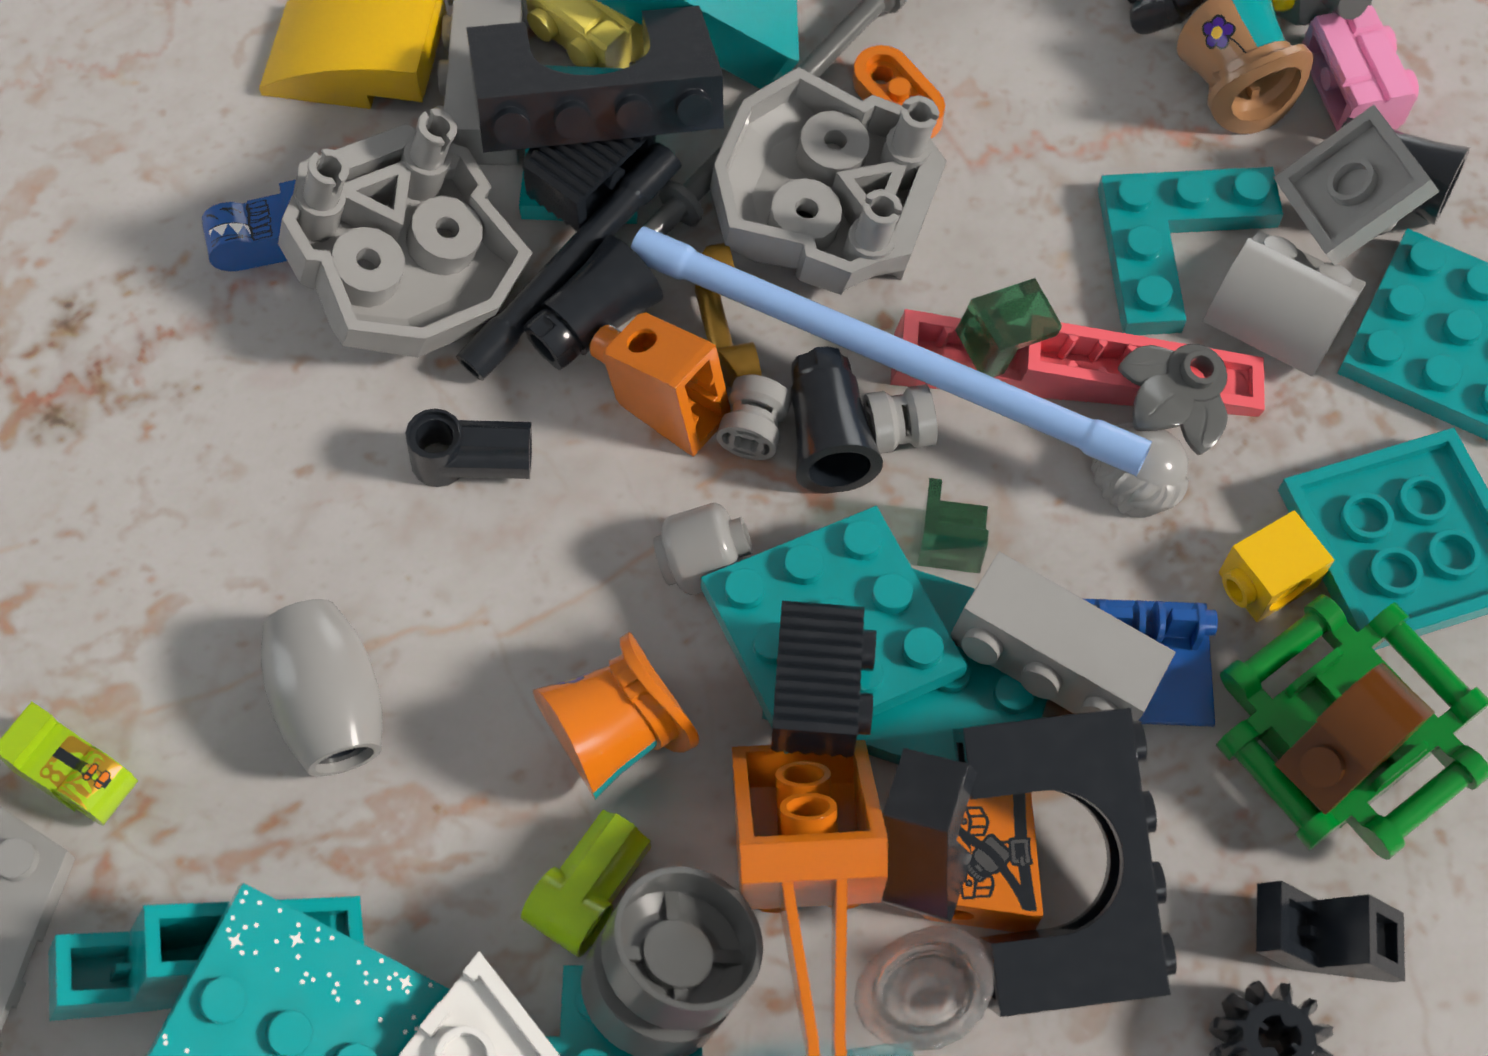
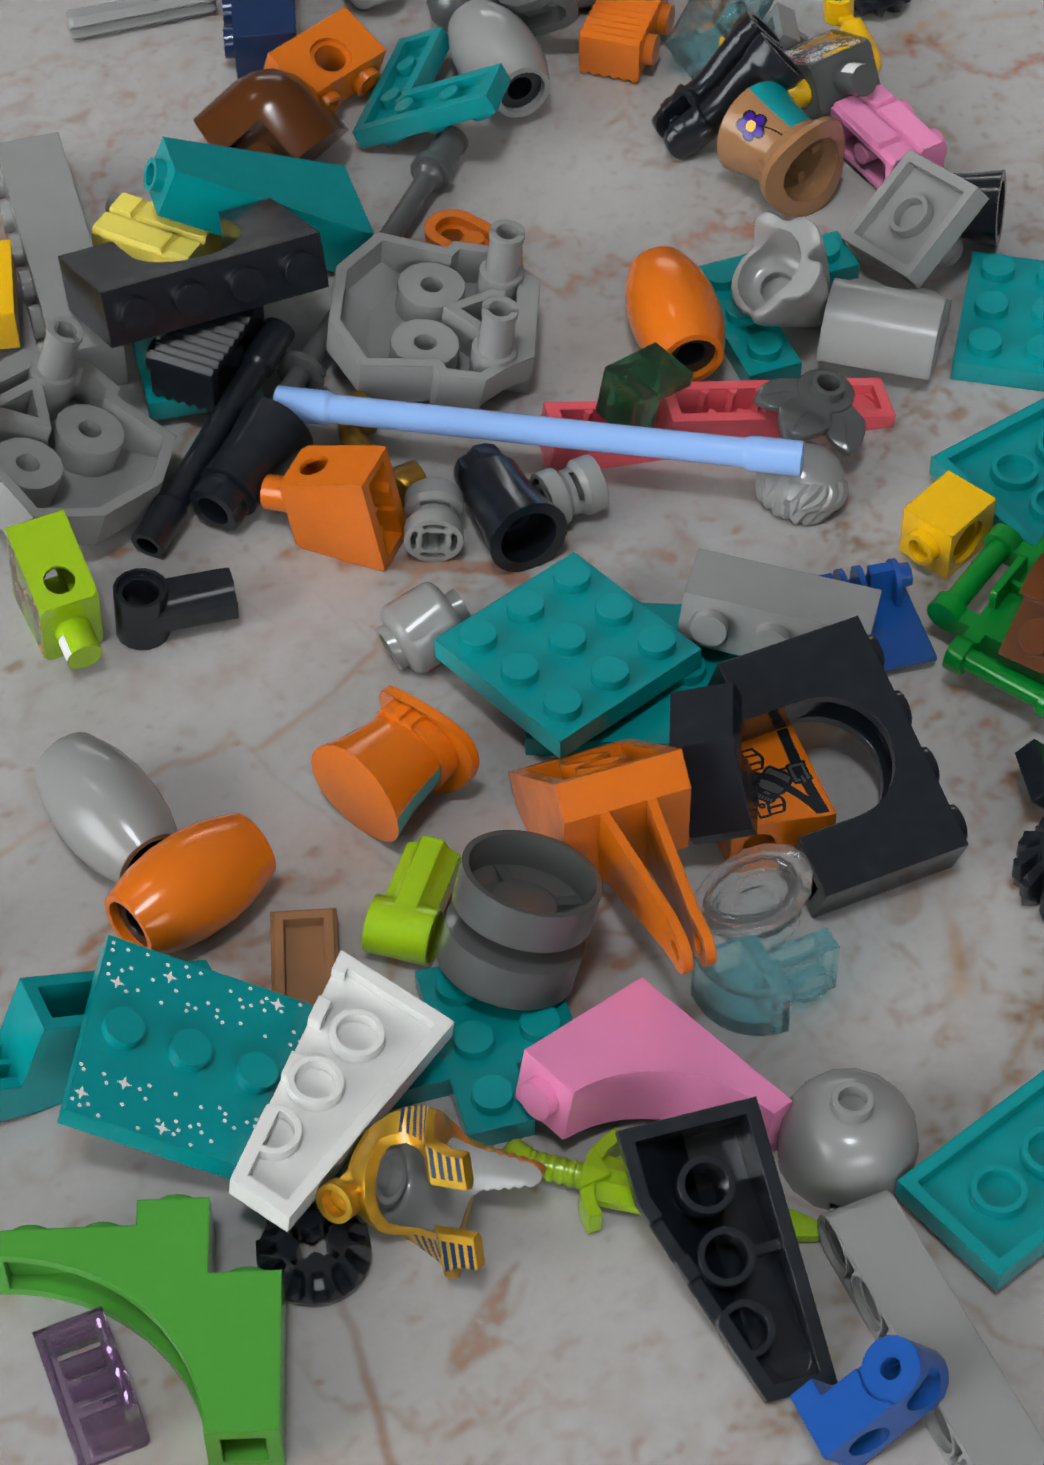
camera: 15 degrees left, 15 degrees down
(354, 412) = (63, 608): none -> lime torso
(371, 804) = (191, 884): none -> orange piece
(462, 914) = (303, 951): none -> medium nougat tile
(820, 679) = (576, 671): black brick -> none
(952, 533) = (649, 570): clear green panel -> none
(1072, 234) = (677, 308): none -> orange piece
(1192, 225) = (784, 274): none -> light grey hat

